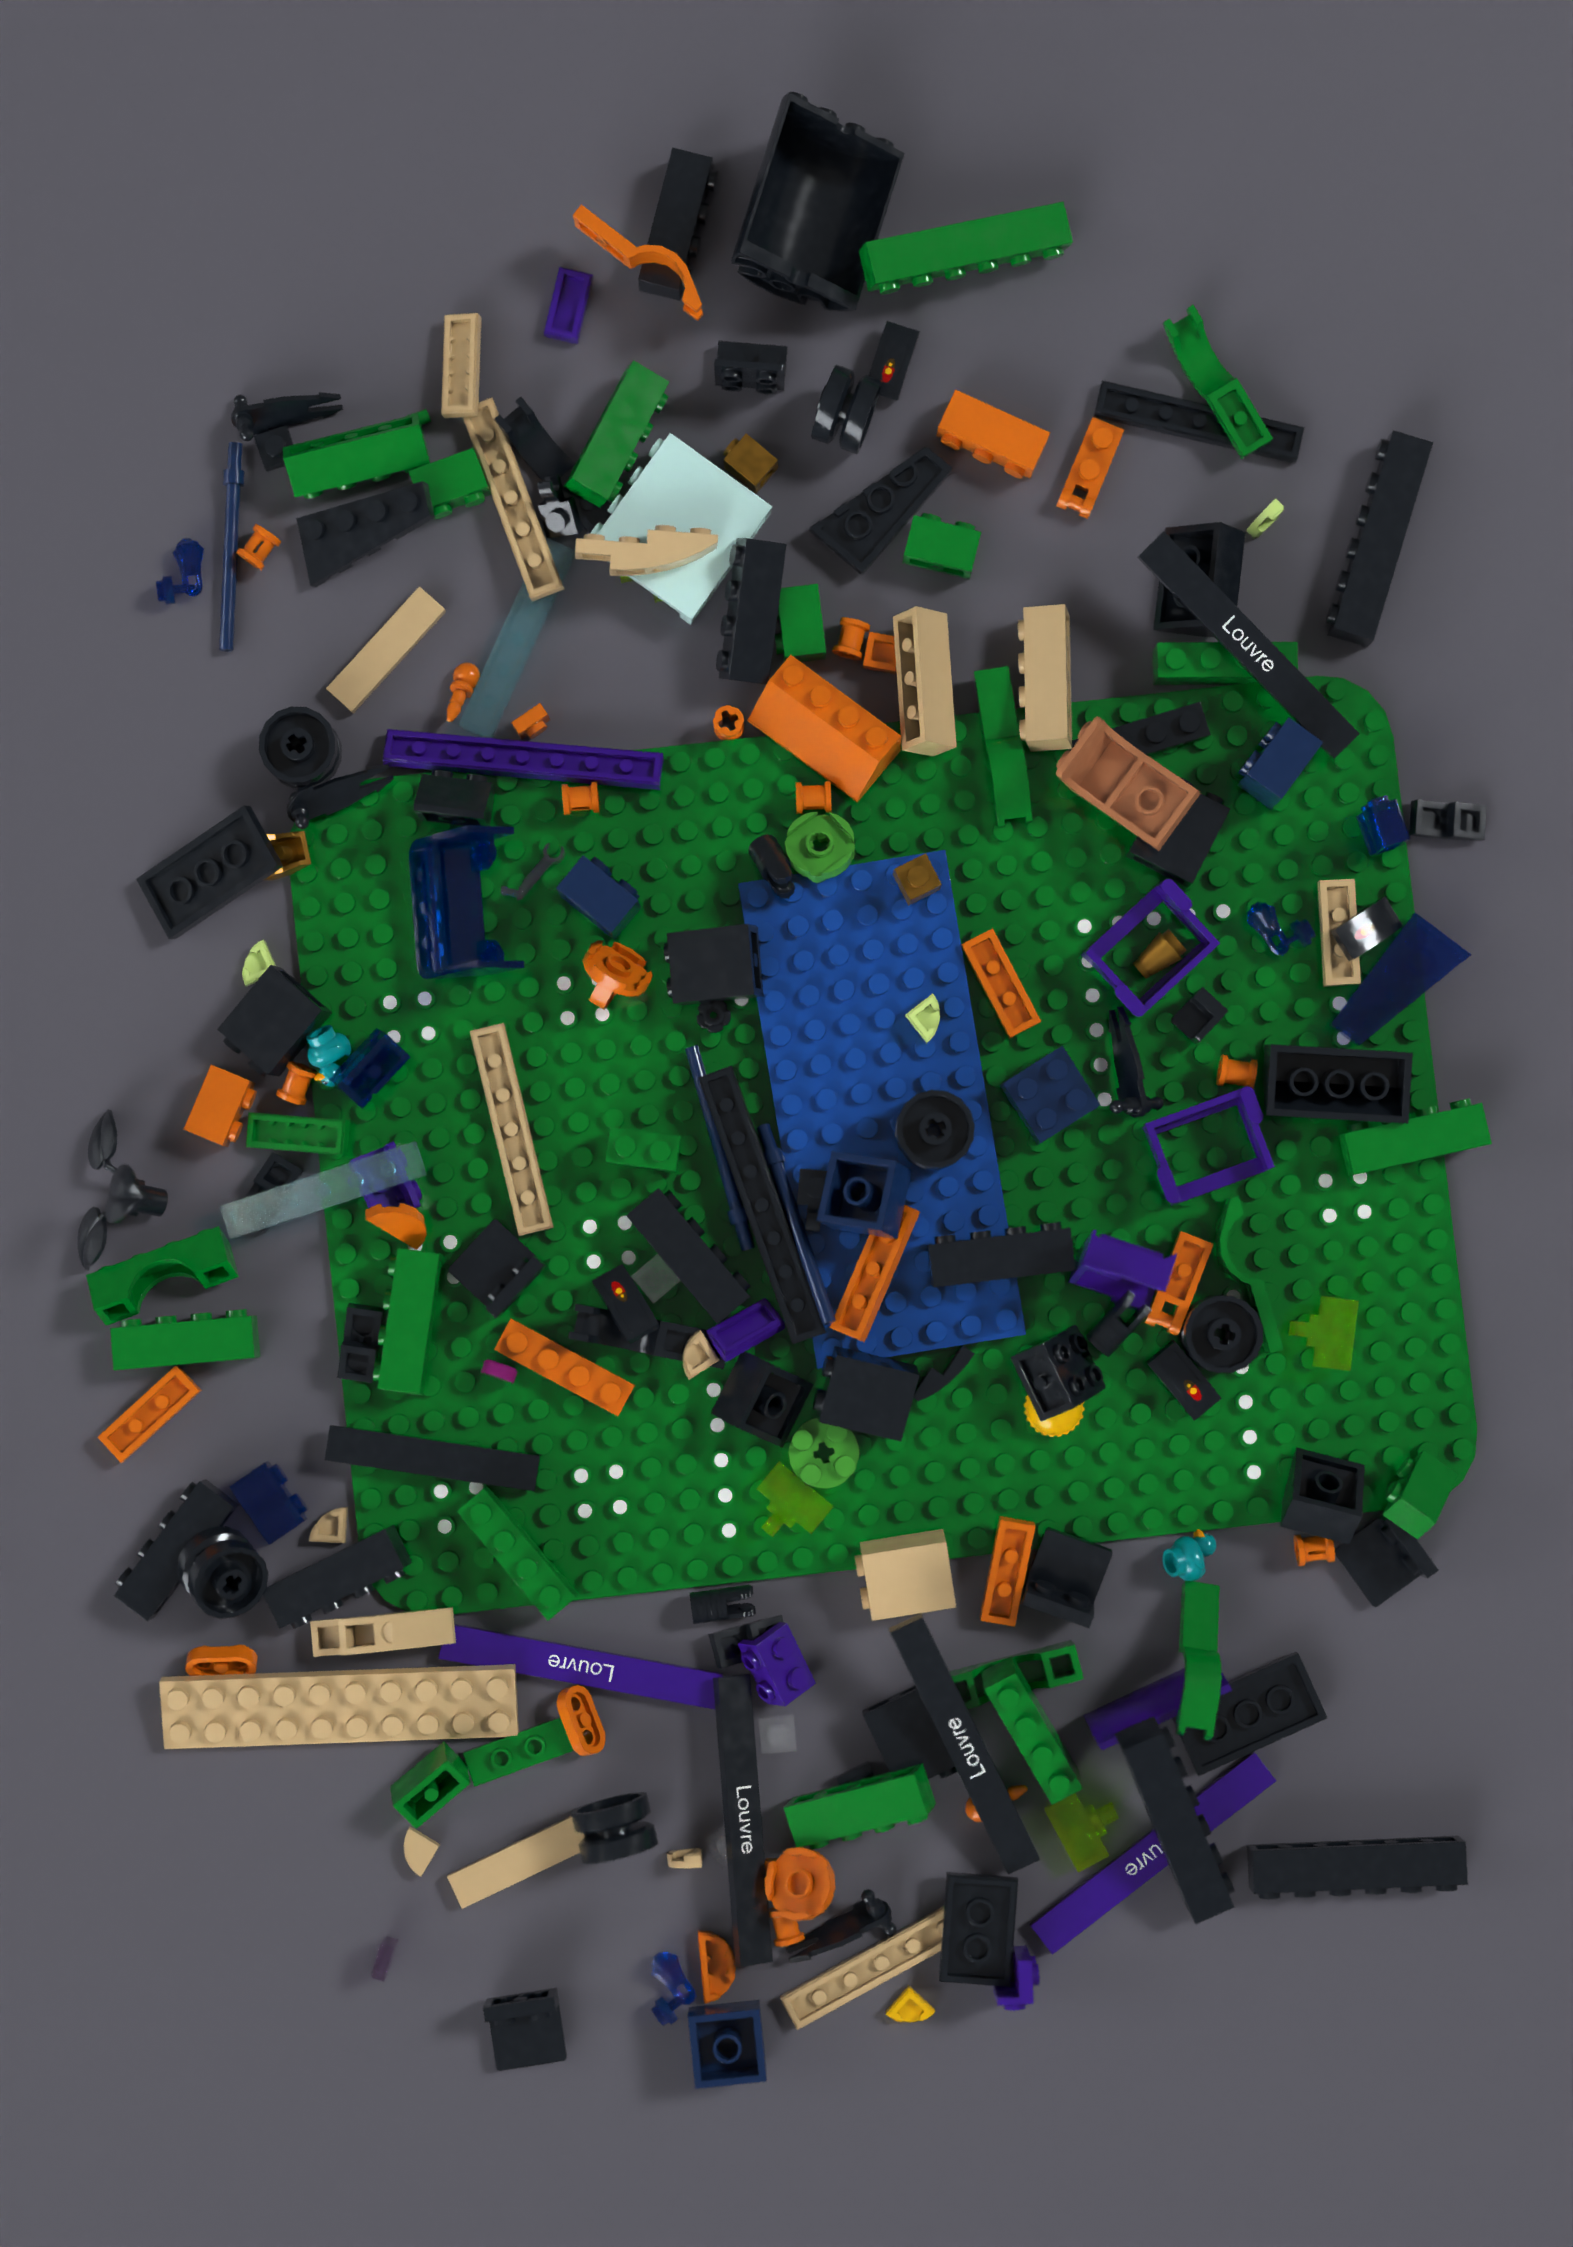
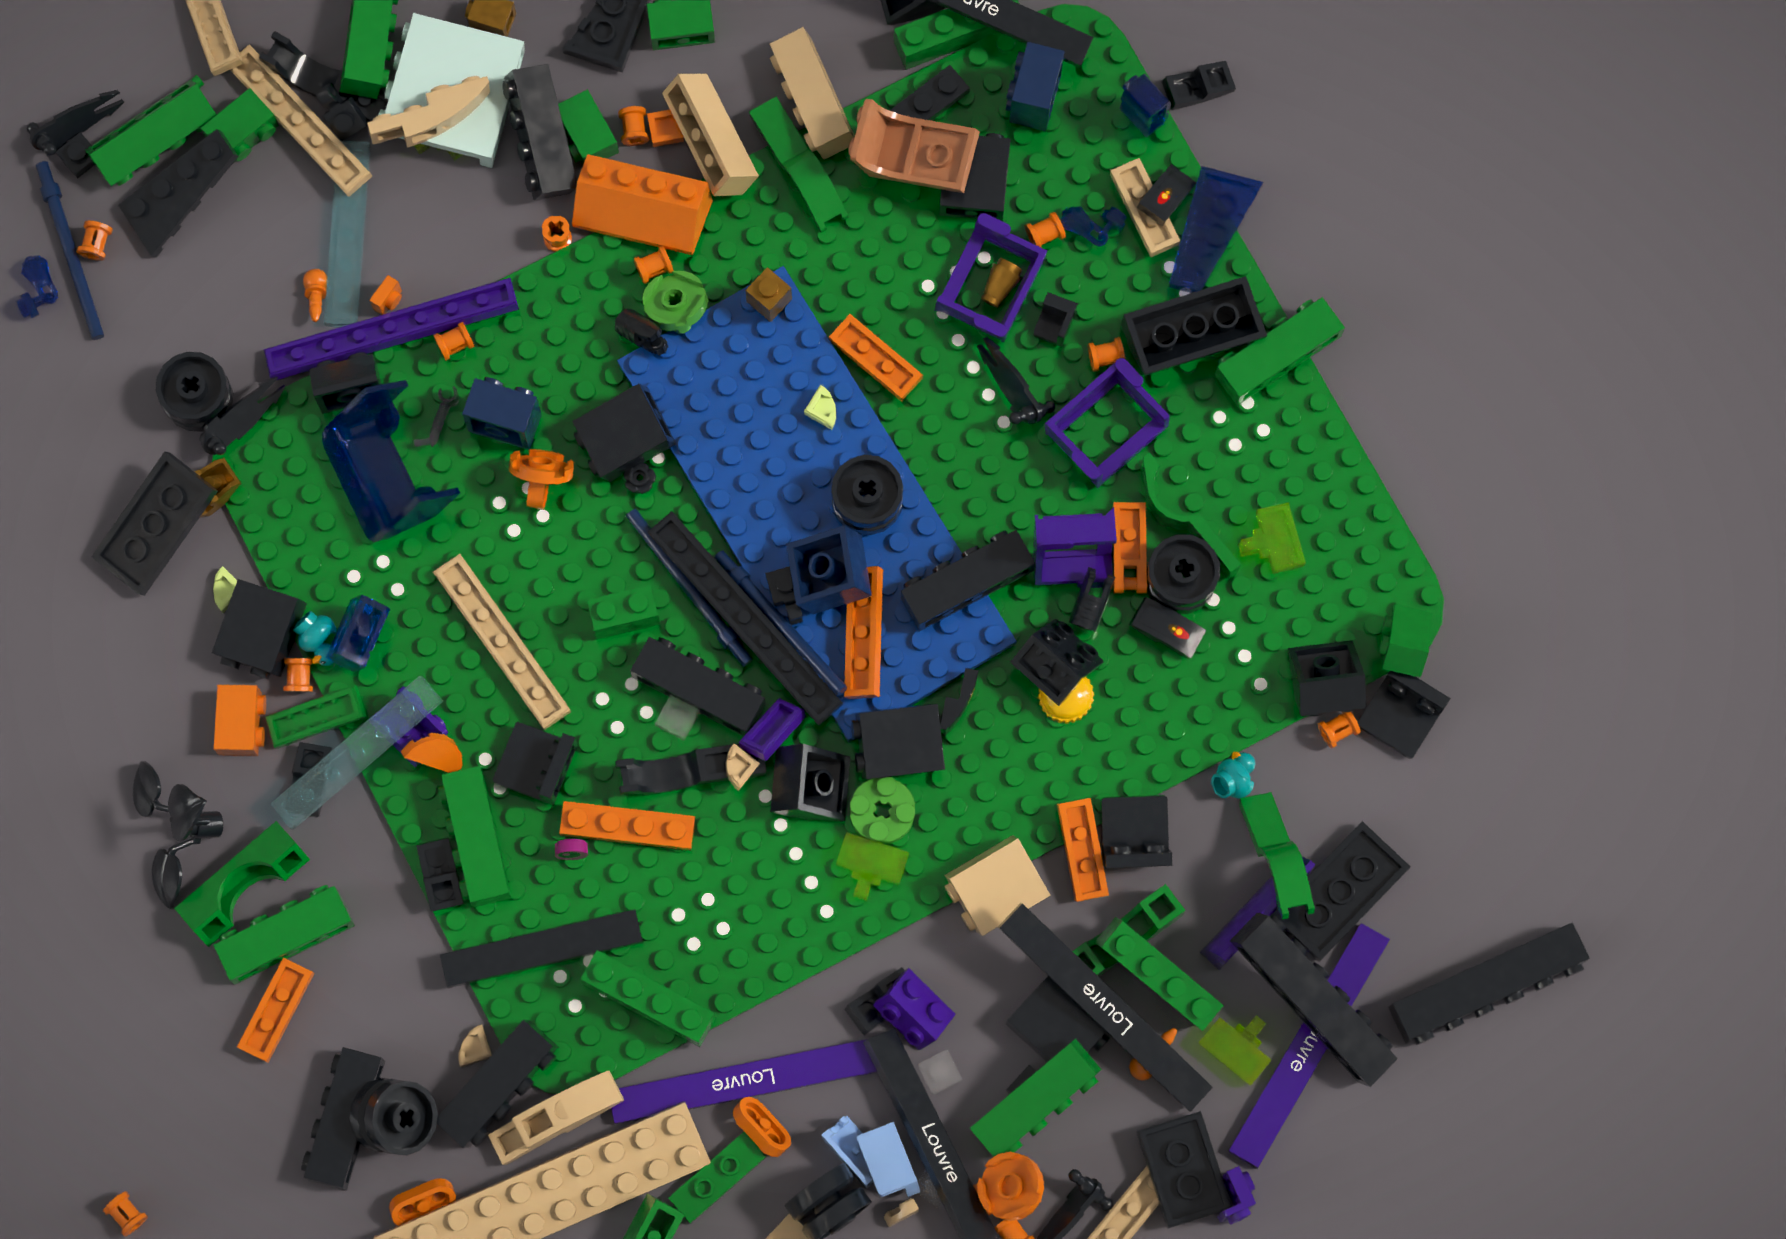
camera: 20 degrees left, 10 degrees down
(269, 1501) = (411, 1044): clear blue brick -> none
(386, 650) = (237, 285): tan tile -> none
(625, 1304) = (660, 748): black slope -> none
(664, 1781) = (844, 1143): none -> light blue hinge
(689, 1808) = (888, 1161): none -> light blue panel
(712, 1606) = (839, 981): black hinge -> none
(1050, 1095) = (955, 432): dark blue brick -> none
(1227, 918) = (1045, 230): none -> orange bush

